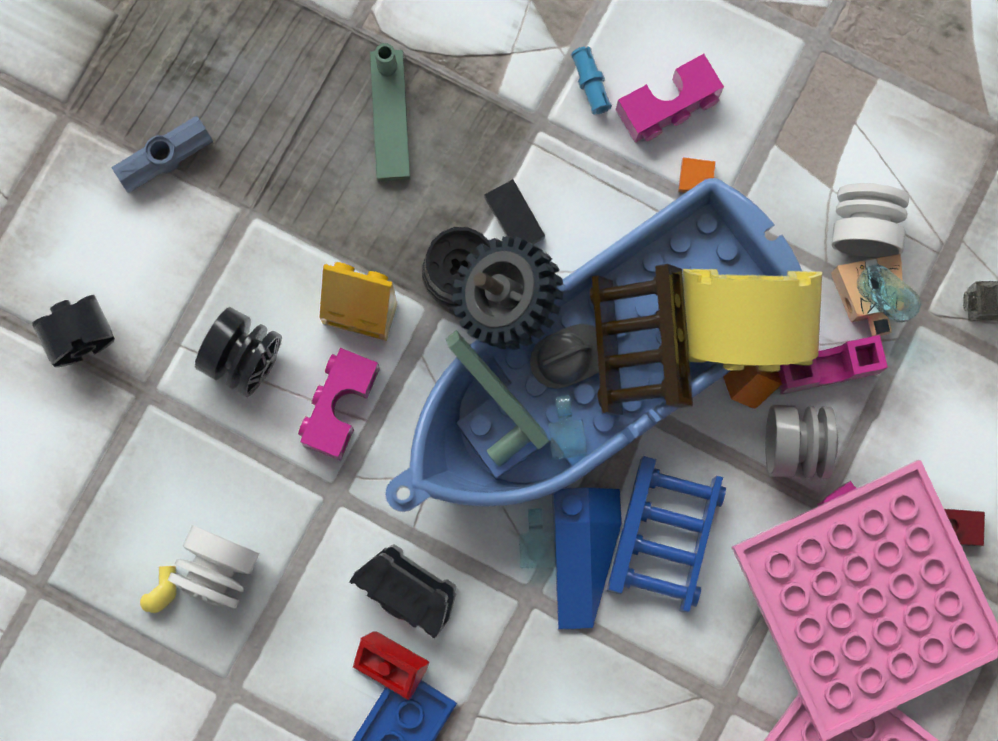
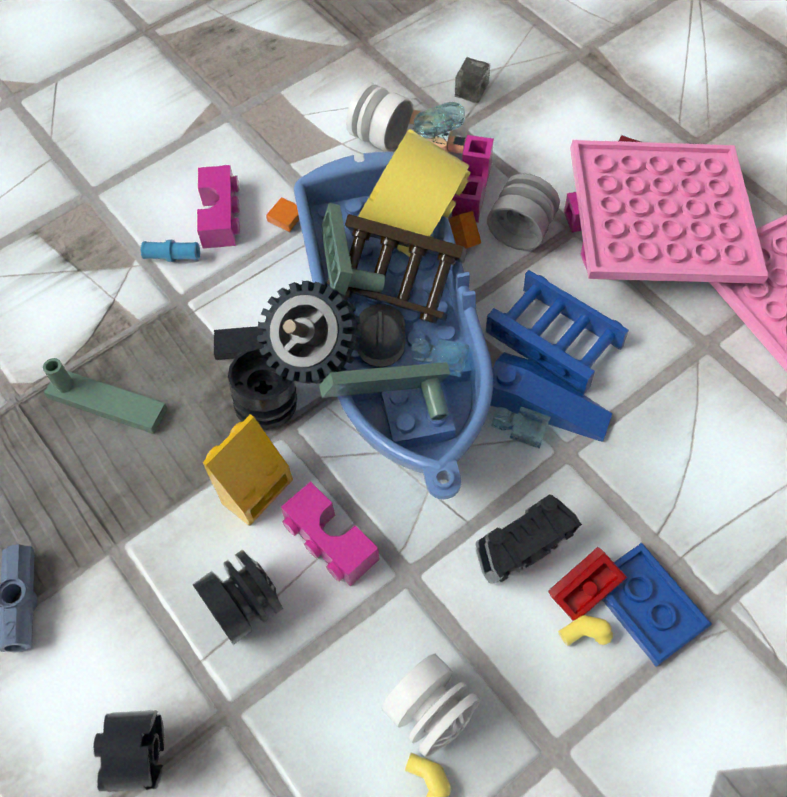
camera: 60 degrees left, 20 degrees down
(351, 680) = (587, 626): none -> light yellow arm
(596, 290) = (338, 259): none -> sand green piece

